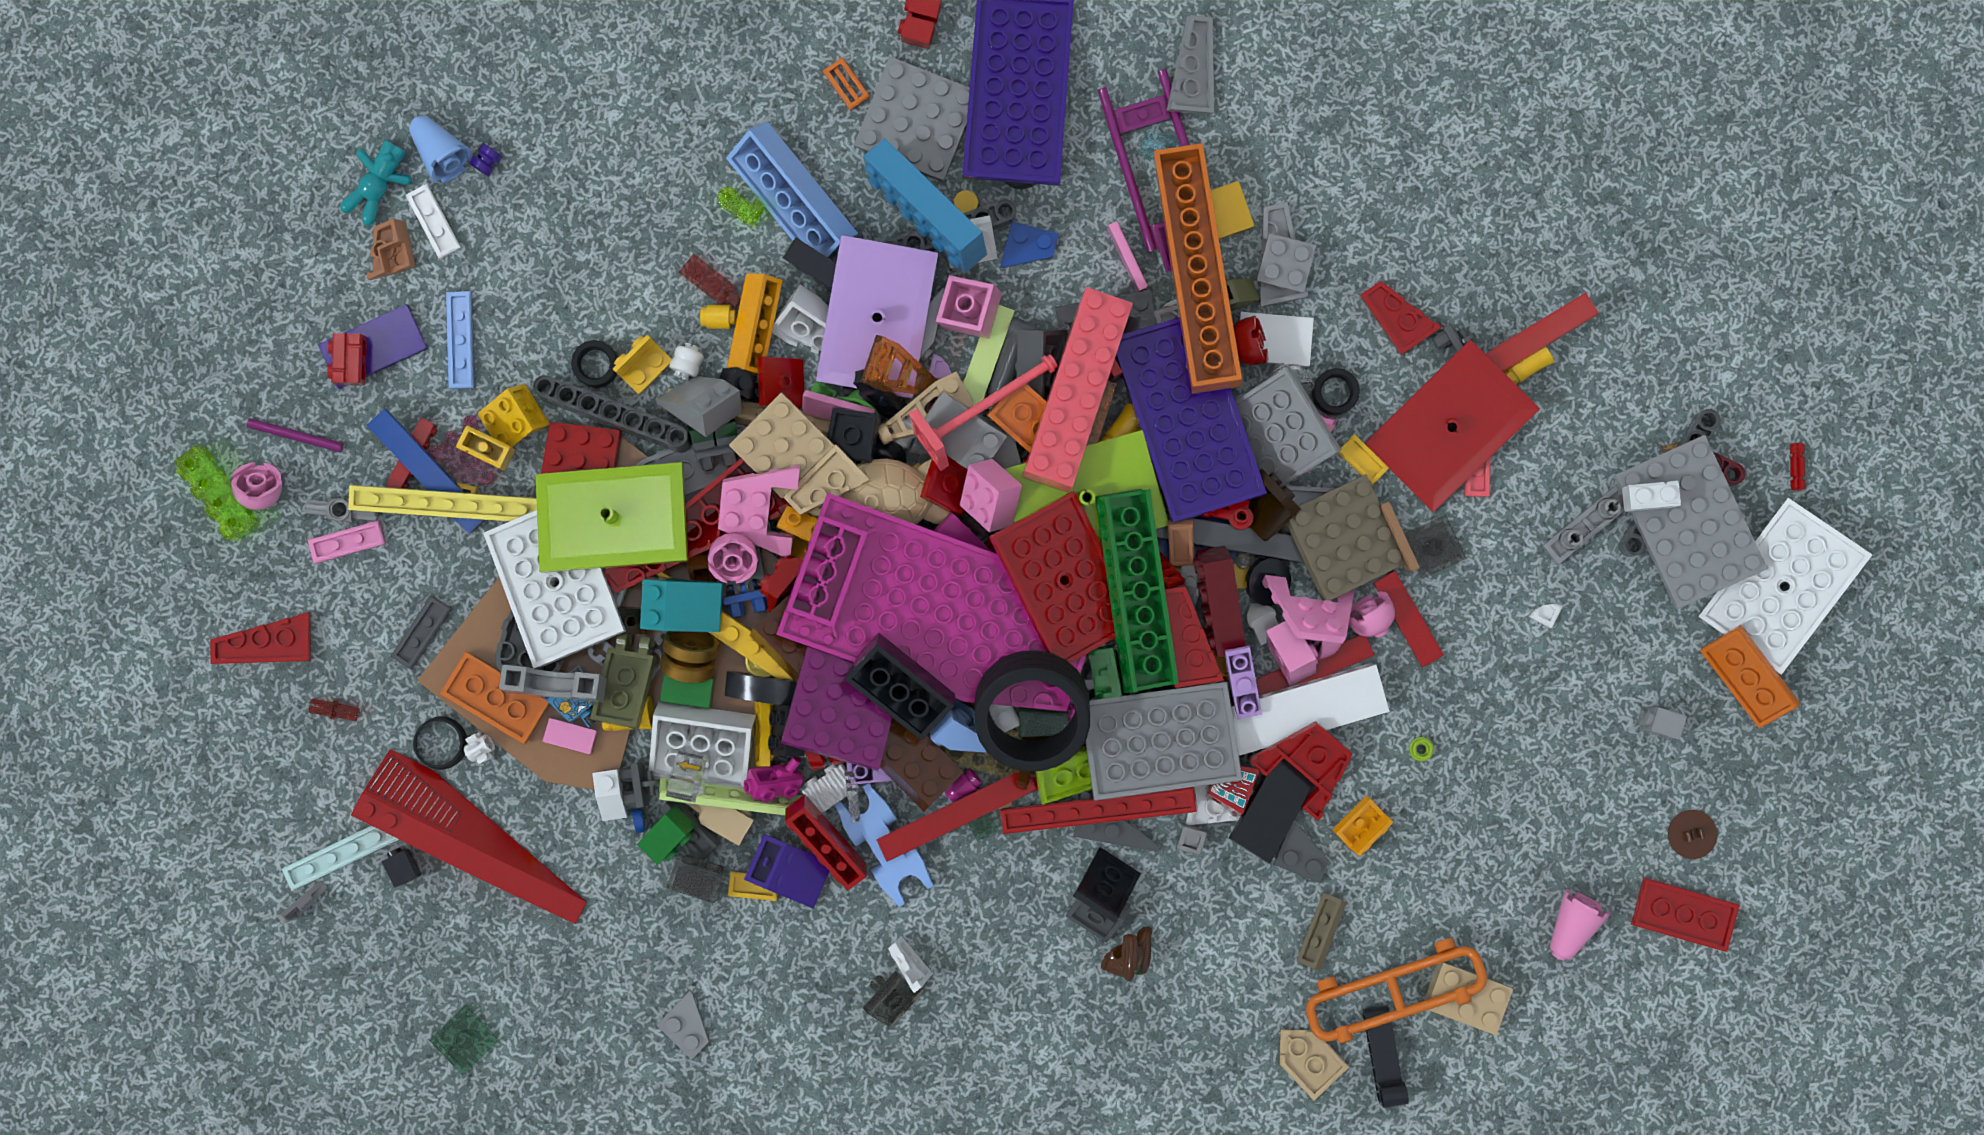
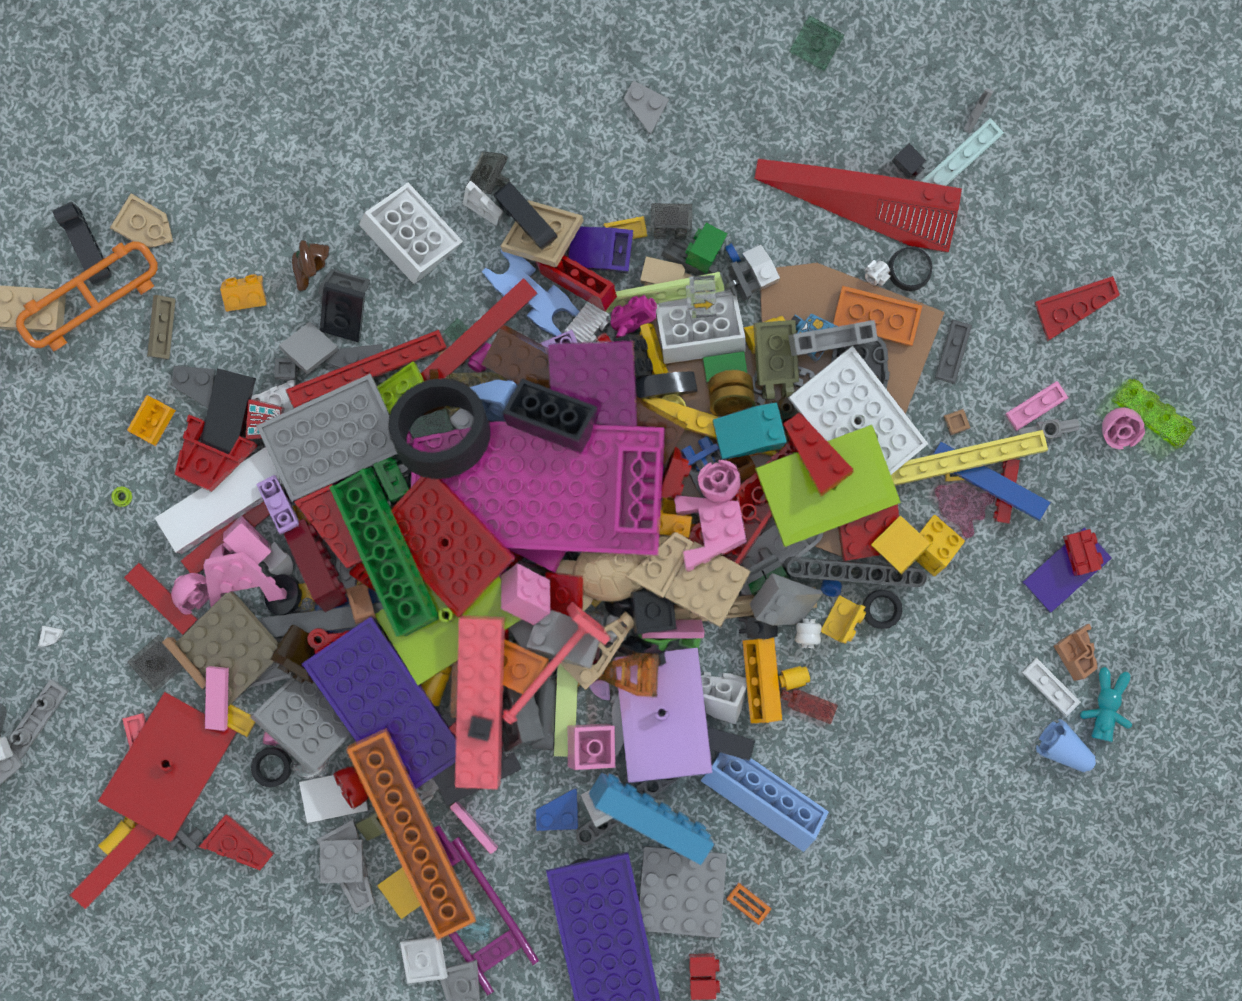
camera: 165 degrees right, 0 degrees up
(295, 435) = (1102, 479): magenta bar -> none
(334, 710) = (1002, 269): clear red axle -> none
(443, 550) = (956, 422): none -> medium nougat tile
(460, 340) = (998, 596): light blue tile -> none
(485, 160) = (1024, 750): dark purple wheel -> none
(485, 448) = (948, 512): yellow brick -> none
(550, 427) = (901, 544): none -> yellow tile
(570, 736) = (807, 303): bright pink tile -> none
(610, 549) = (821, 460): none -> red wing
(645, 404) = (831, 588): none -> blue tile
(739, 207) = (808, 774): clear neon green leg -> none
(779, 376) = (727, 641): red plate -> none
(850, 907) = (562, 222): none -> tan plate
(852, 796) = (566, 320): clear tile -> none
(862, 932) = (525, 215): none -> black beam
(966, 201) = (620, 833): yellow tile -> none
(1002, 956) = (410, 232): none -> white slope
(1084, 358) = (480, 728): none -> black tile
(1158, 856) = (308, 347): none -> light grey tile
(1216, 944) = (243, 293): none -> light orange bracket
(1226, 129) = (423, 959): none -> white tile
(1375, 485) = (216, 698): none -> bright pink tile

